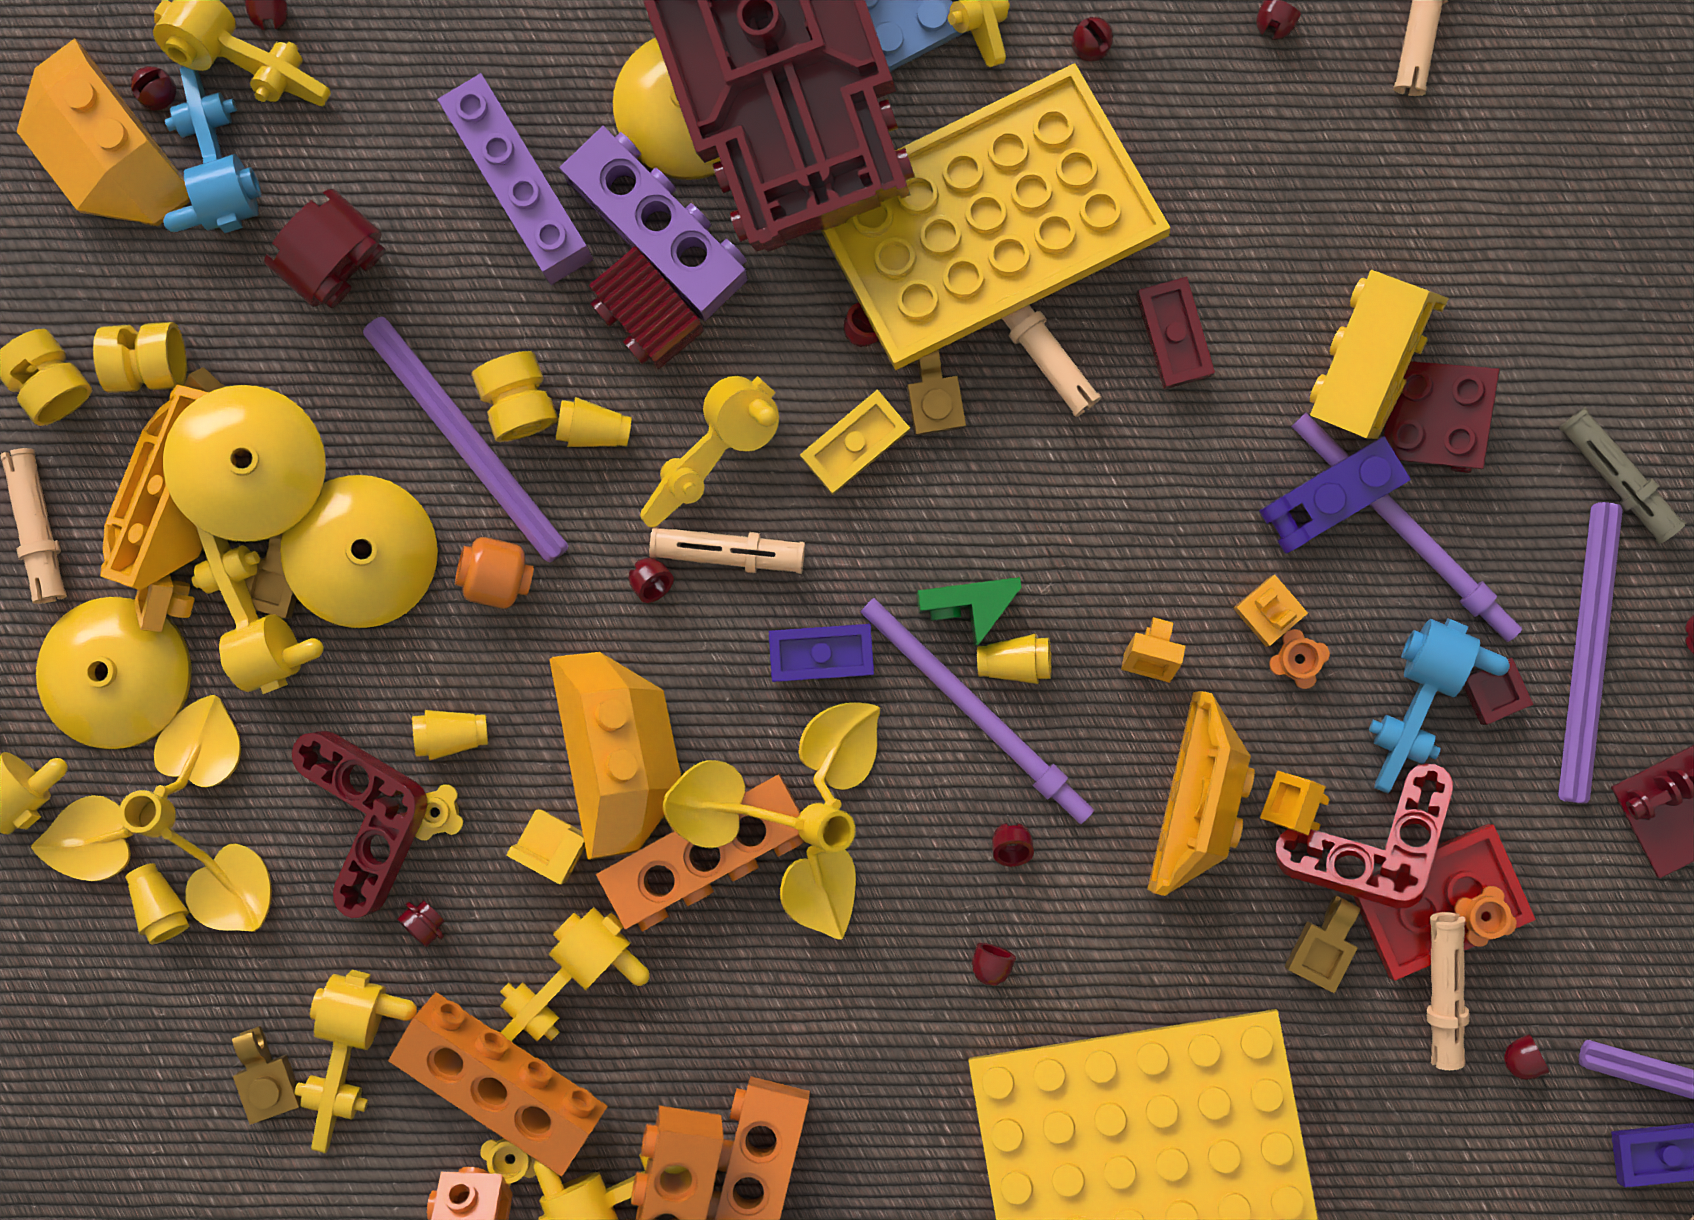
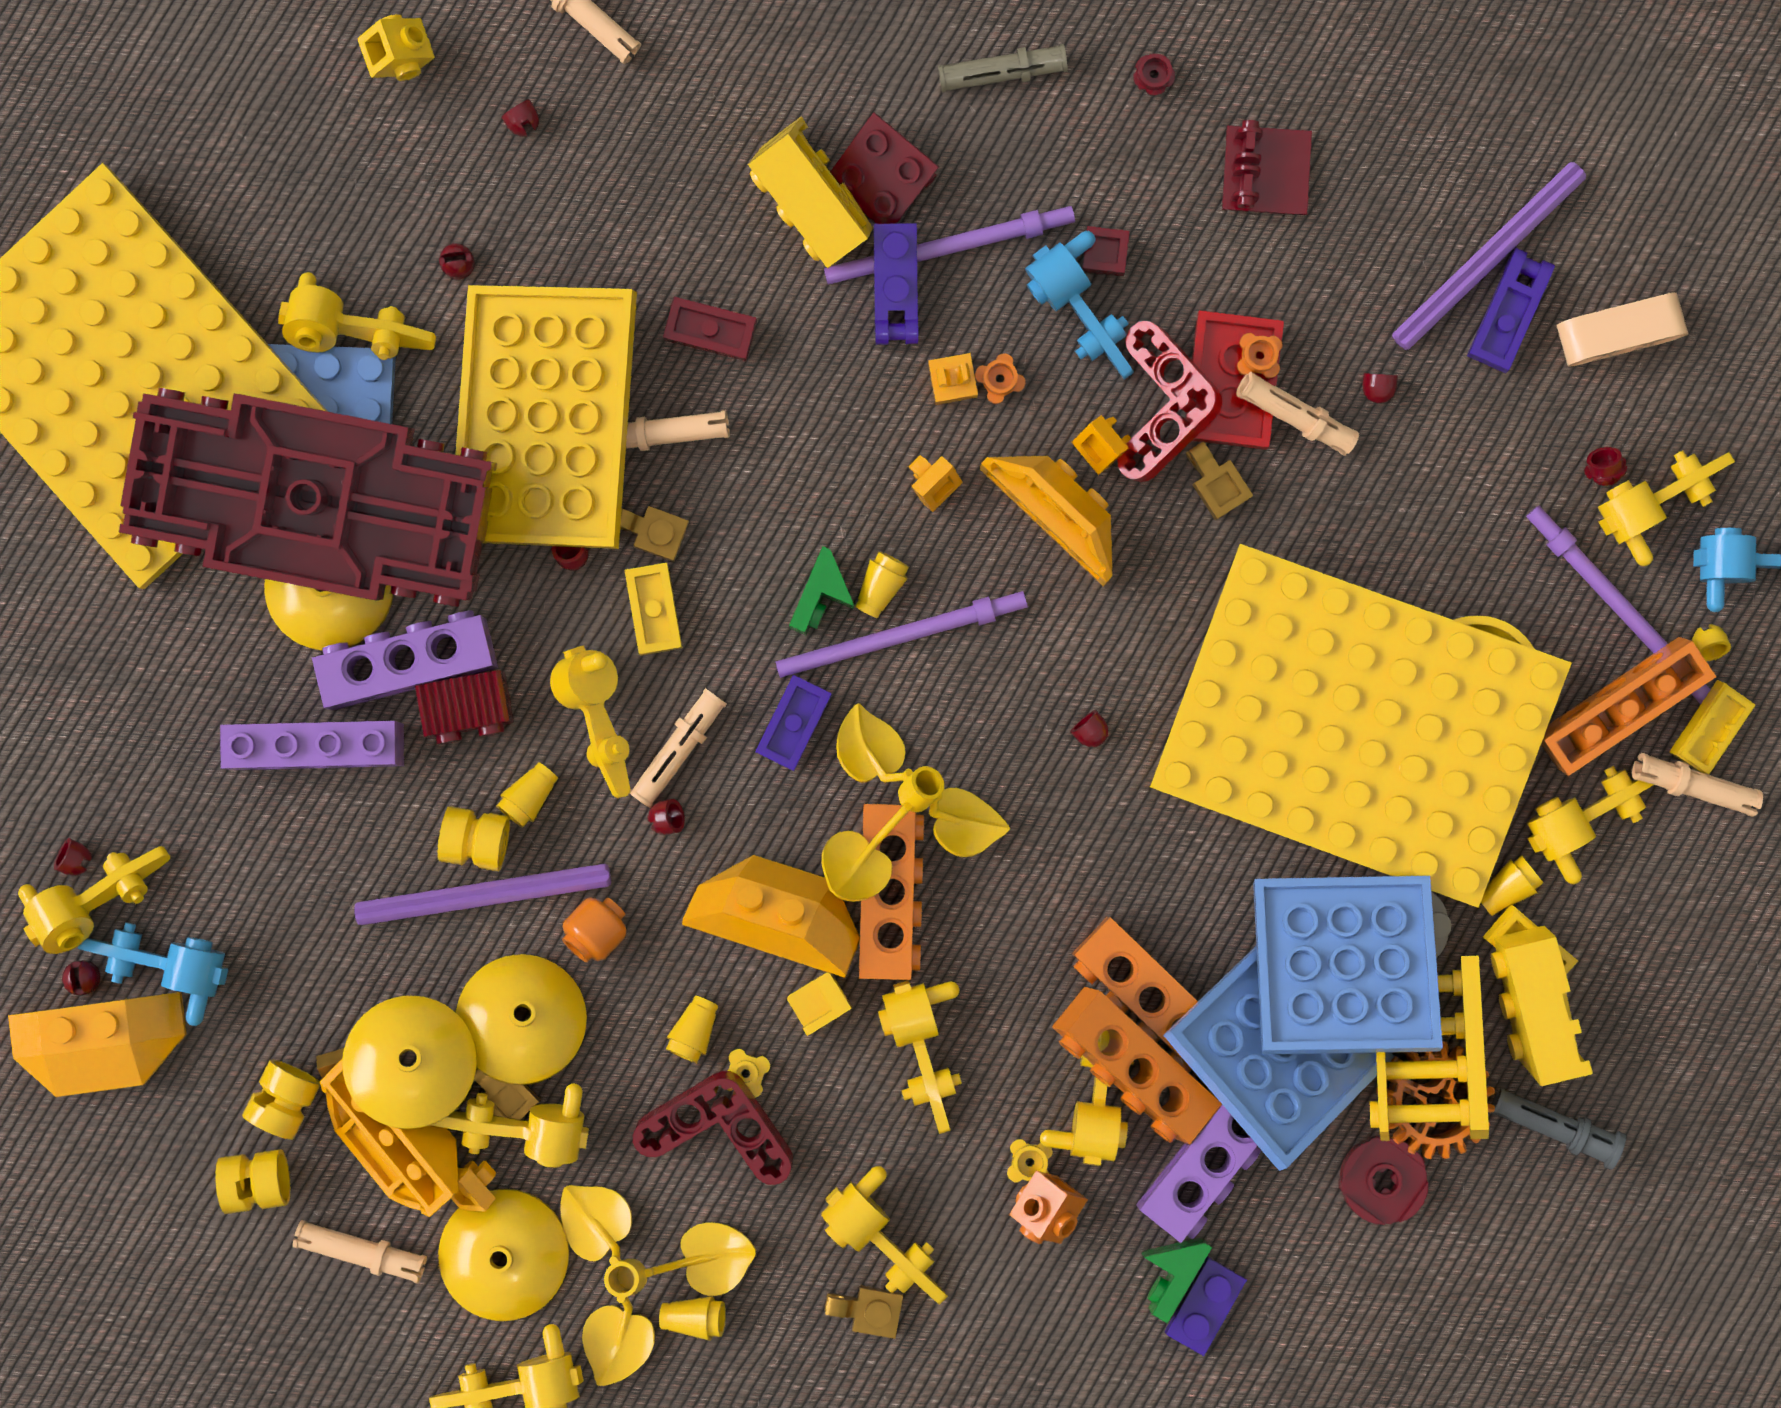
camera: 55 degrees left, 0 degrees up
(324, 249) = (282, 915): dark red brick -> none
(422, 922) = (821, 1128): dark red plate -> none
(497, 1083) = (961, 1156): orange brick -> none
(1012, 855) = (1022, 668): dark red hinge -> none
(1590, 652) = (1117, 166): medium lavender axle -> none

